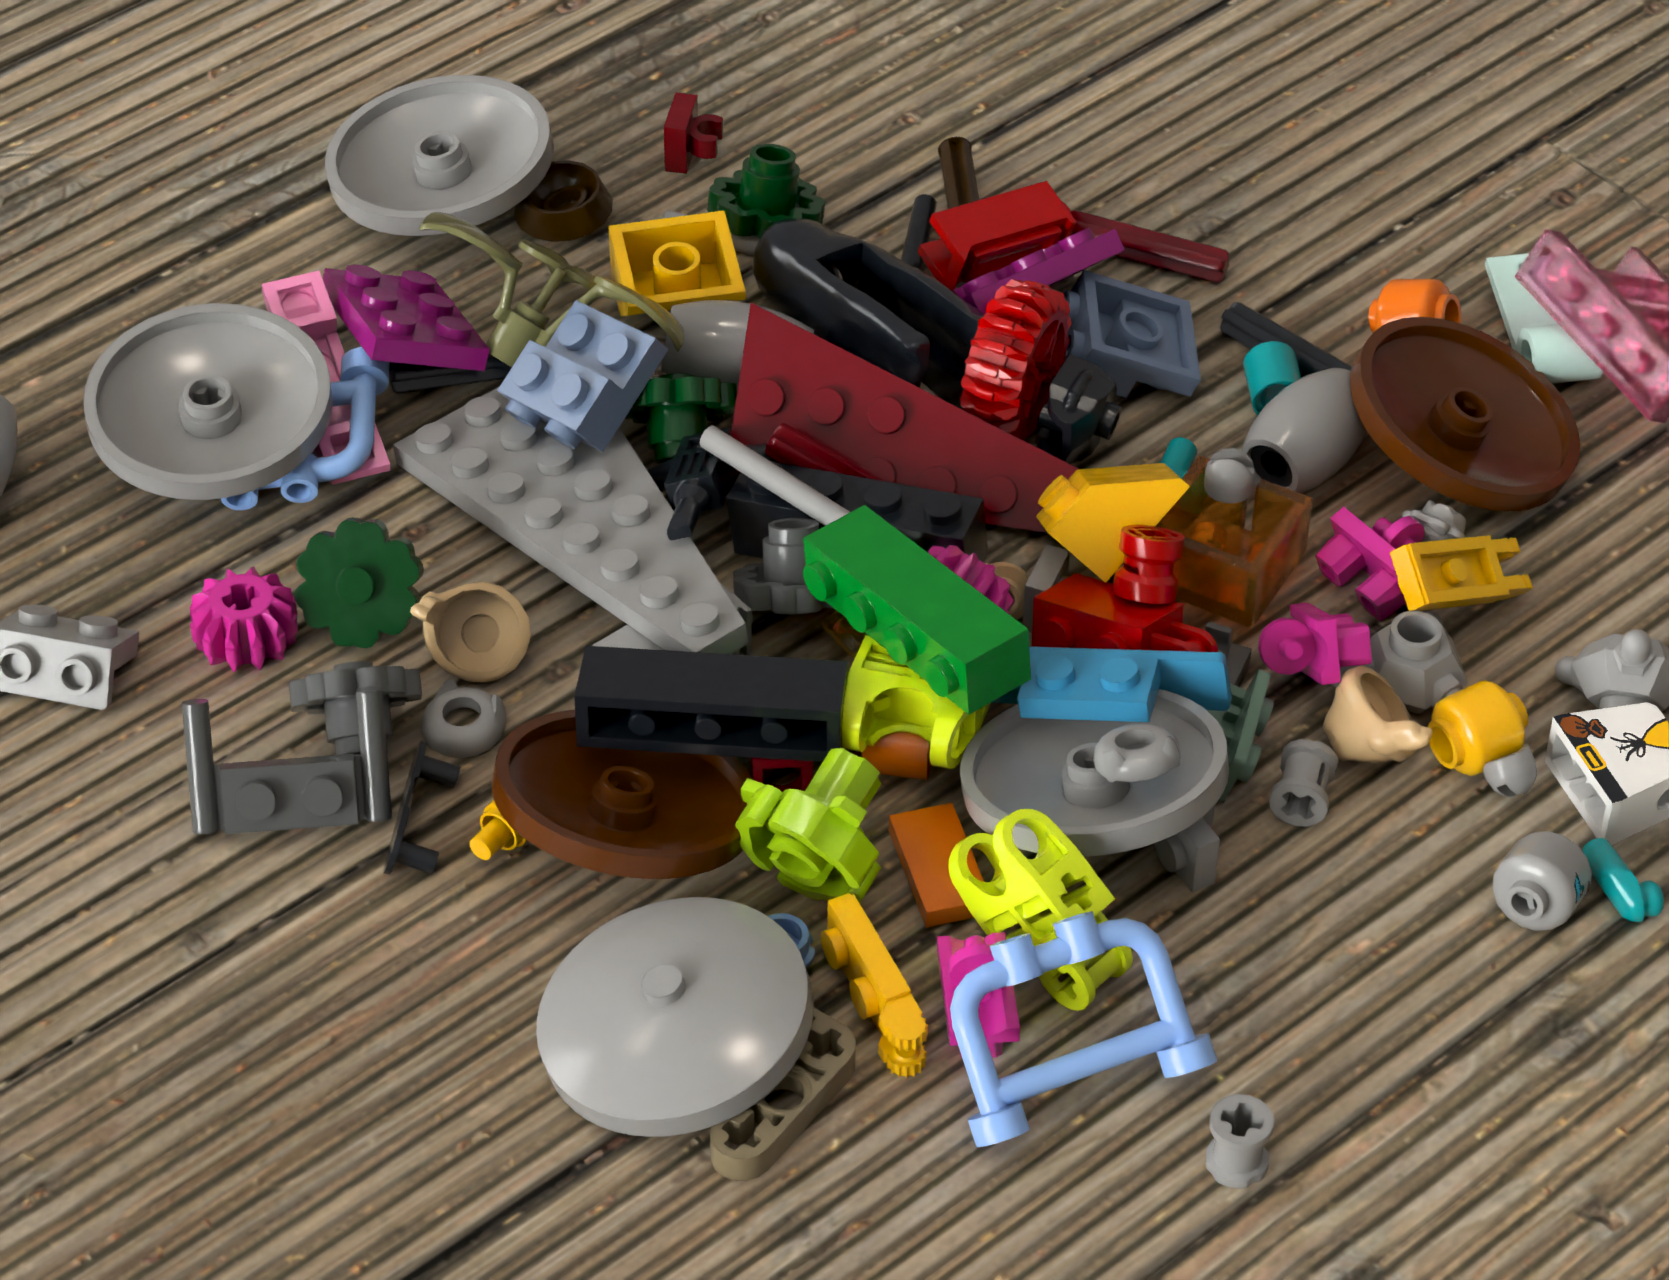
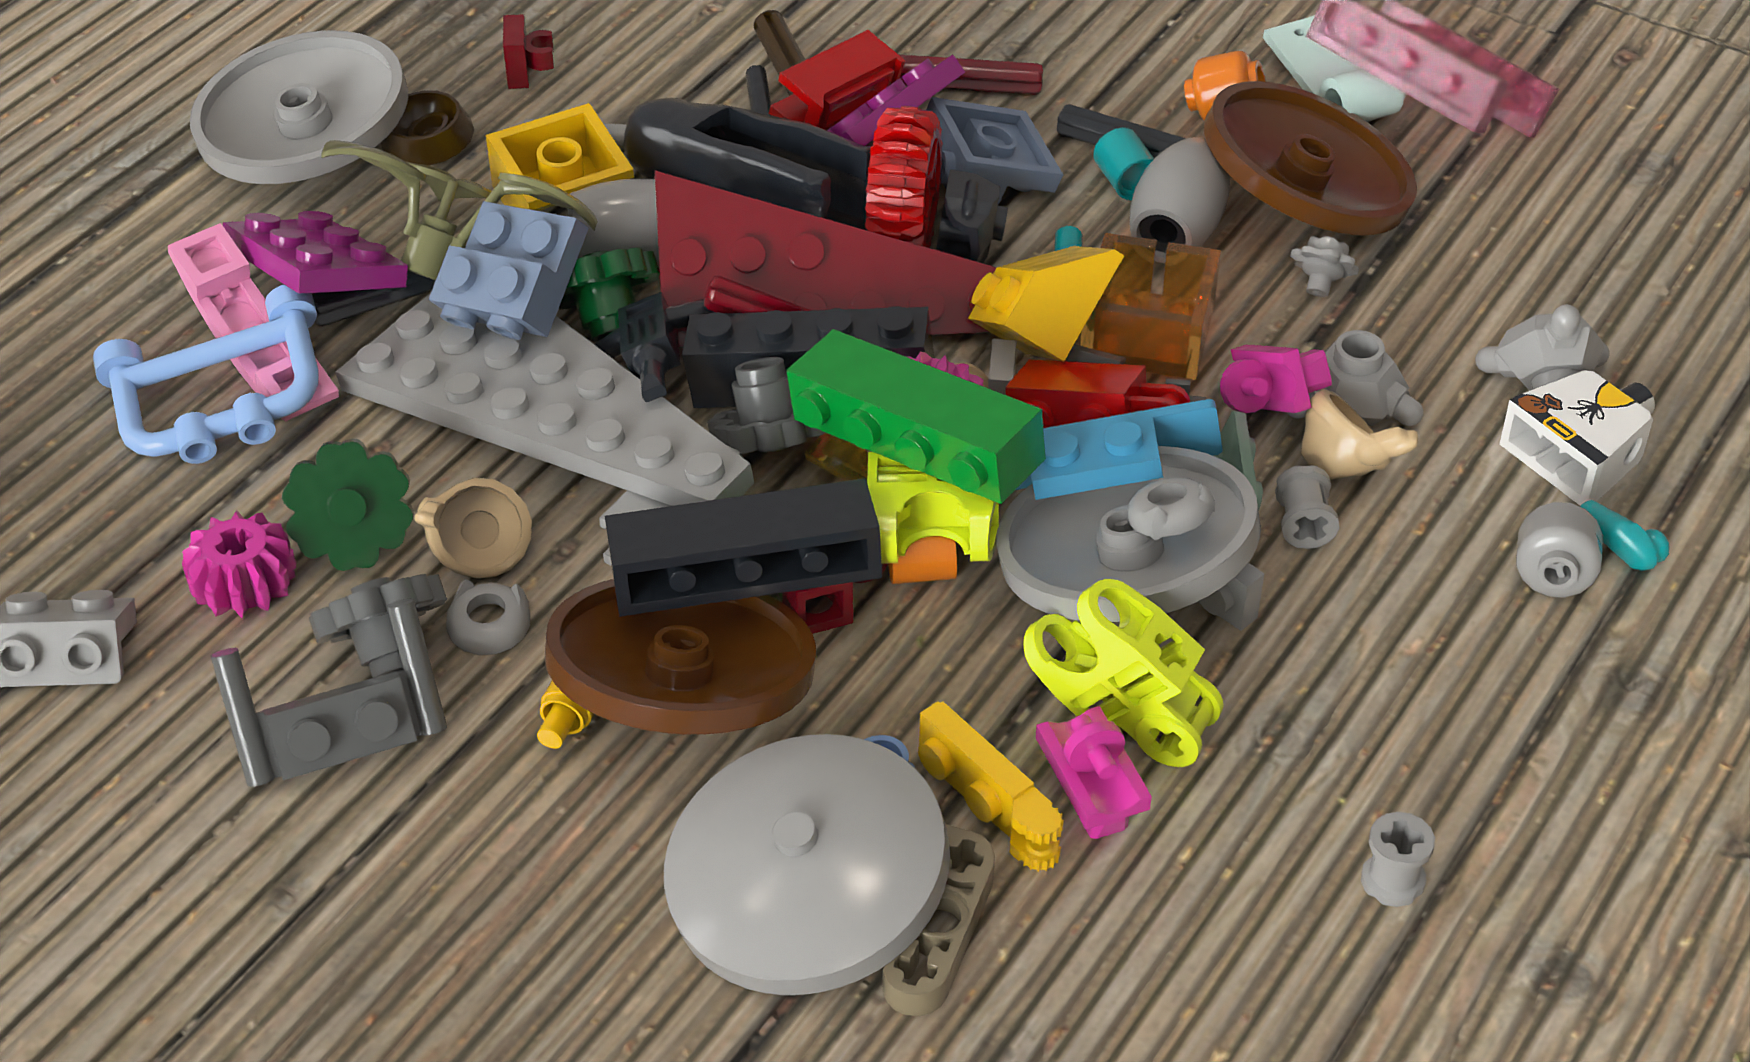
camera: 15 degrees left, 0 degrees up
(208, 401) = (144, 364): light grey dish -> none
(405, 852) = (464, 755): black piece -> none
(765, 192) = (613, 84): dark green plant -> none
(771, 476) = (726, 326): light grey bar -> none
(815, 831) = (888, 650): lime piece -> none
(924, 847) = (993, 653): orange tile -> none
(1019, 961) = (1143, 730): light blue bar -> none
(1148, 564) = (1105, 334): red wheel -> none
(1229, 476) = (1143, 243): light grey hinge -> none
(1368, 549) = (1289, 292): dark pink hips -> none
(1457, 572) = (1367, 291): yellow hinge -> none
(1477, 727) = (1448, 424): yellow head -> none
(1512, 773) = (1482, 456): light grey hinge -> none

